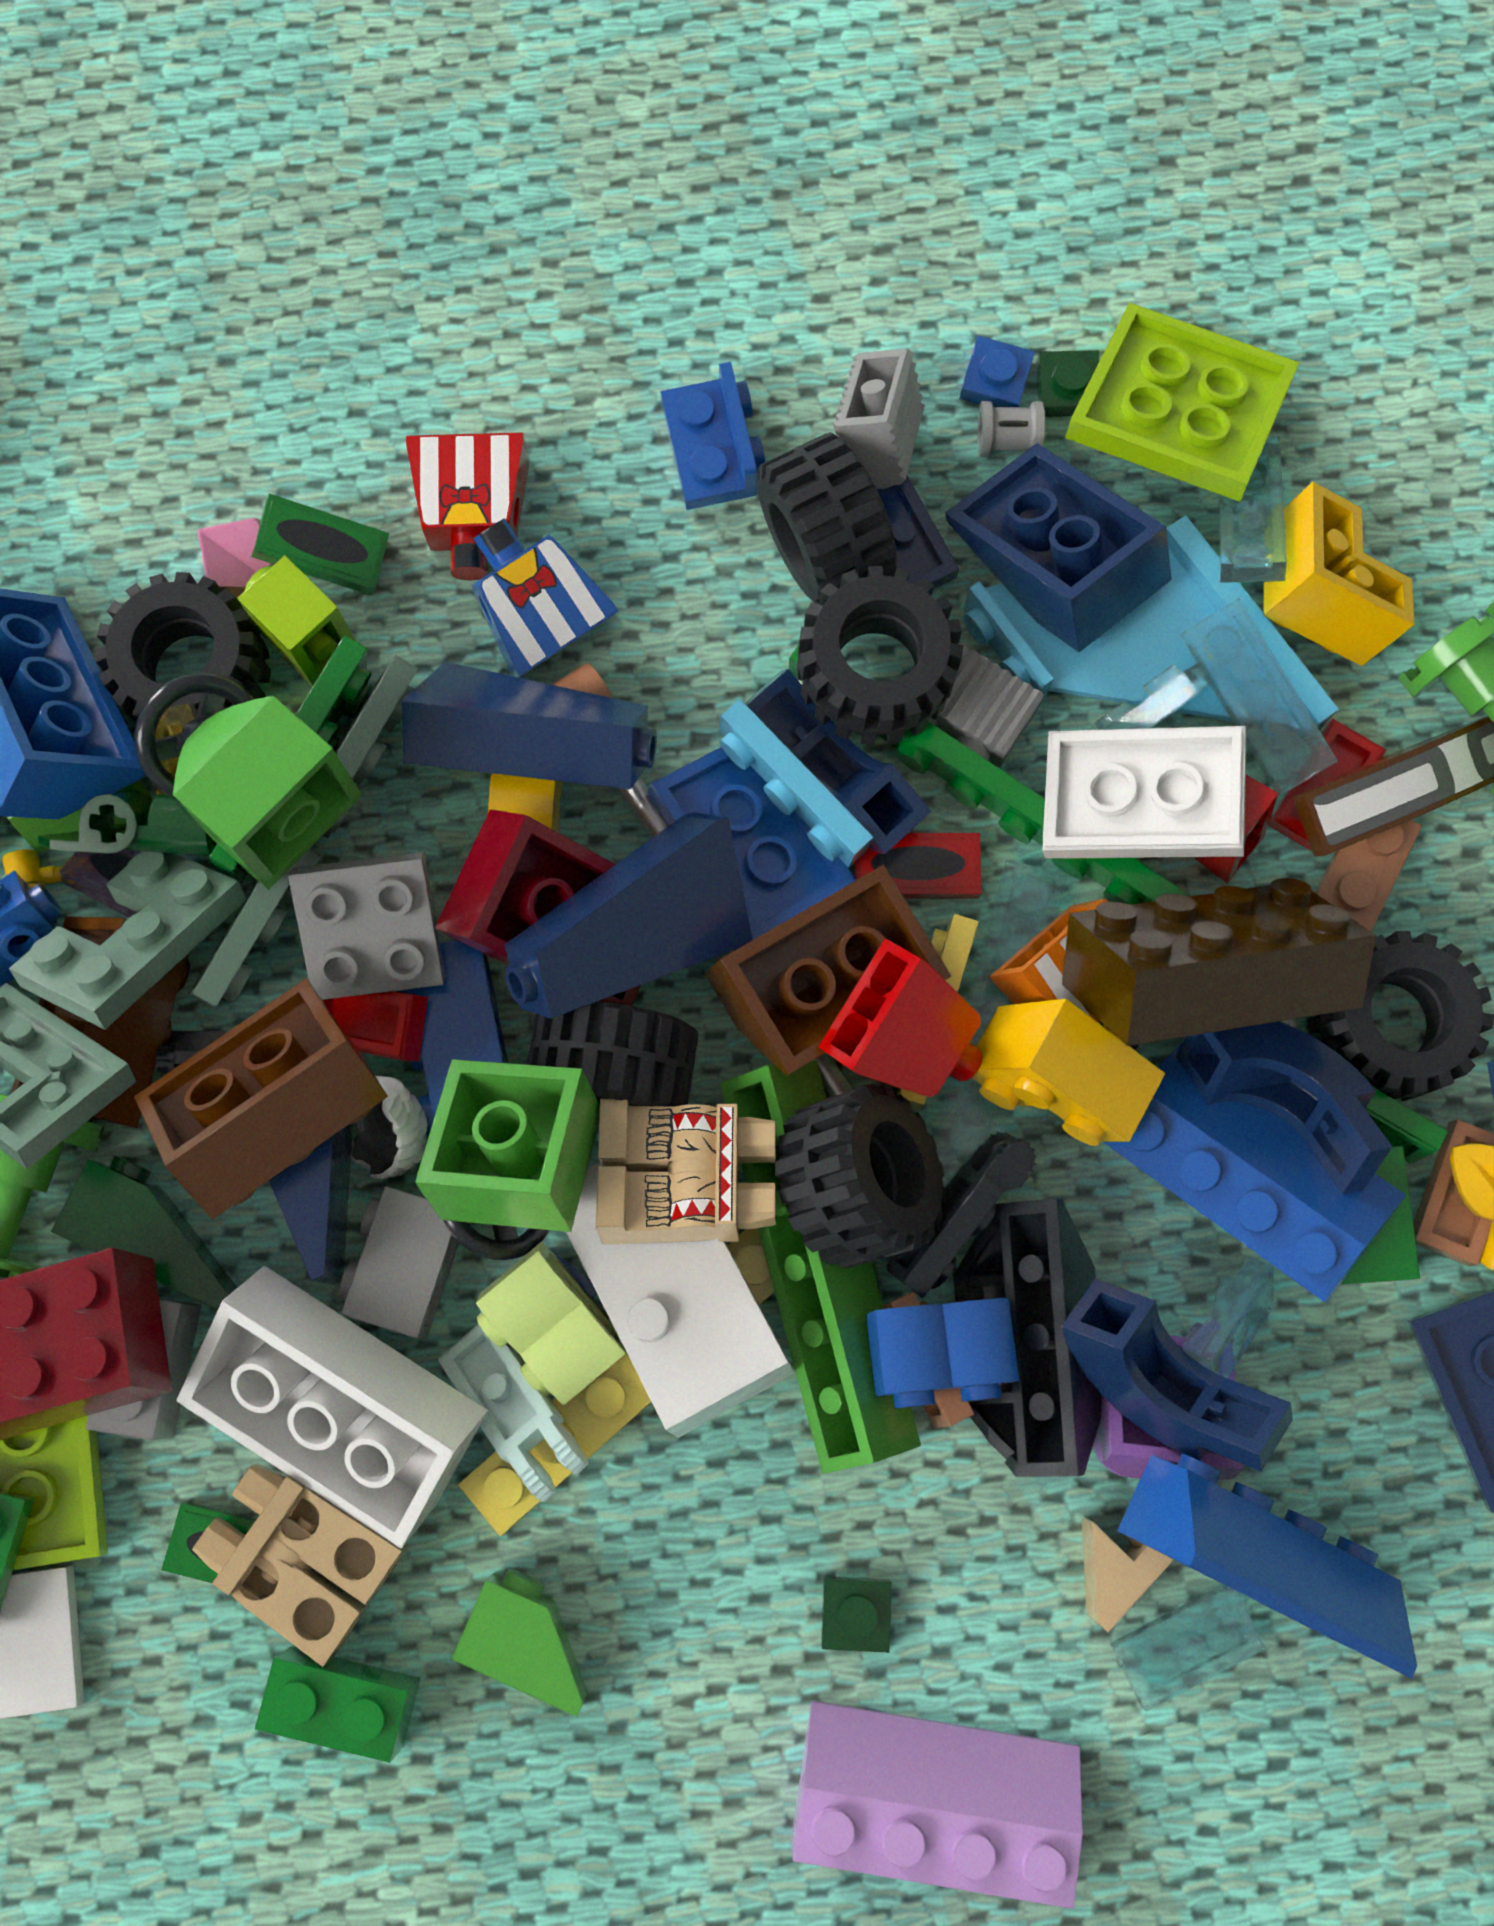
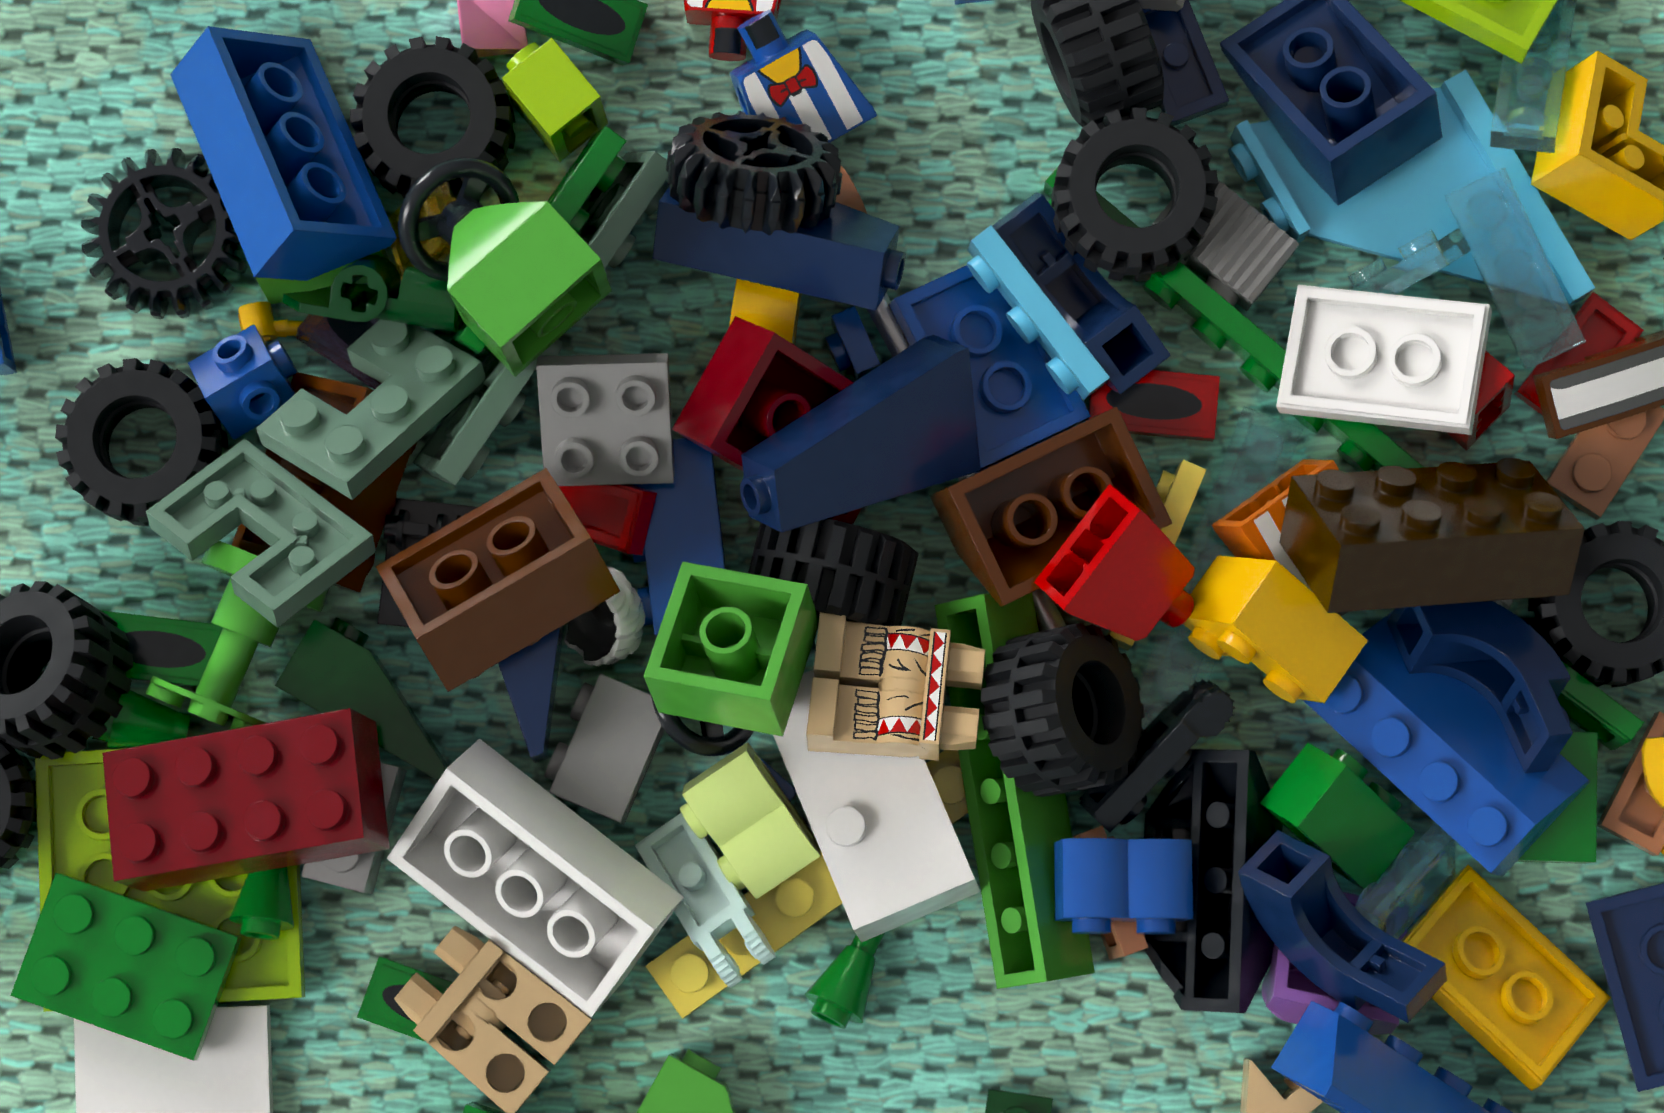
camera: 10 degrees right, 5 degrees up
(50, 1462) = (264, 905): none -> green cone
(495, 665) = (754, 172): none -> black gear
(612, 832) = (851, 344): none -> blue plate
(665, 1483) = (844, 986): none -> green cone
(1153, 1254) = (1338, 814): none -> green brick
(1347, 1410) = (1505, 978): none -> yellow tile

